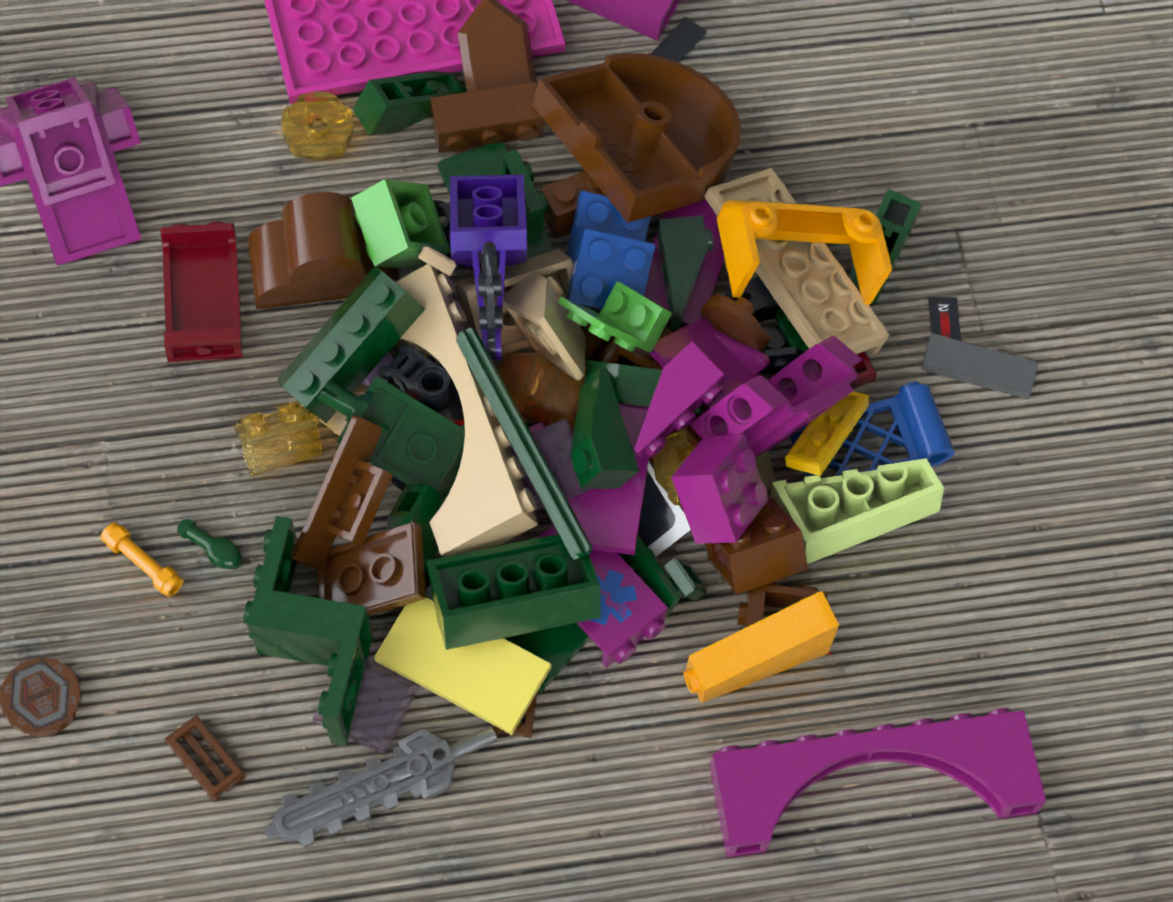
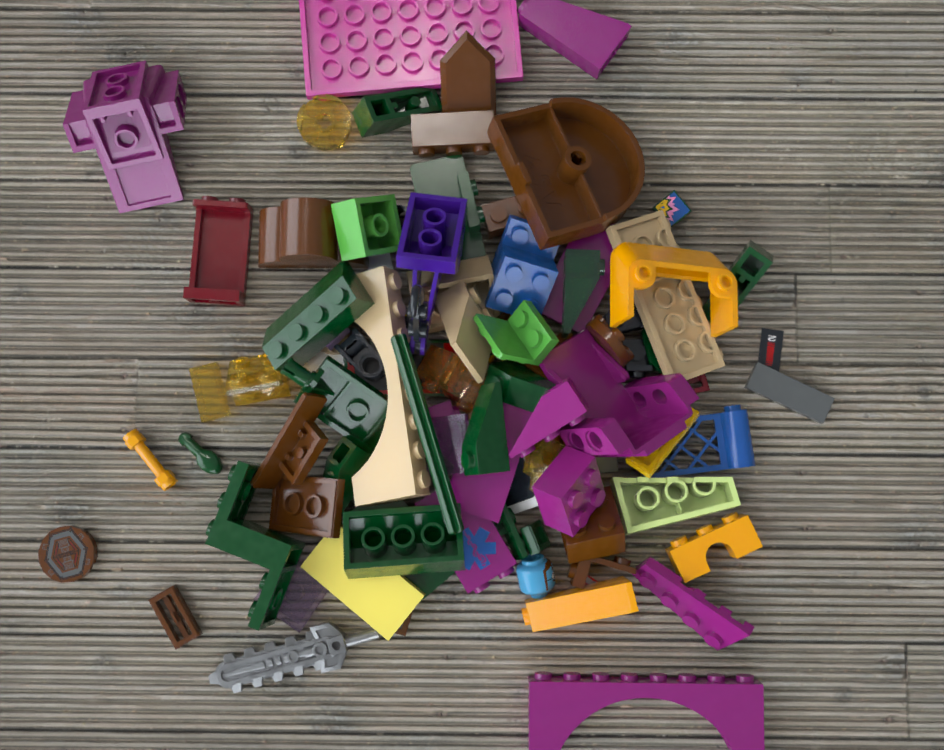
camera: 20 degrees right, 20 degrees up
(212, 466) = (209, 392): none -> clear yellow tile
(437, 260) = (388, 264): tan tile -> none
(680, 41) = (611, 84): black sticker -> none
(694, 625) = (535, 576): none -> dark azure head
(787, 170) = (673, 207): none -> tile
(922, 638) = (690, 605): none -> magenta wing
(945, 540) = (689, 554): none -> light orange arch

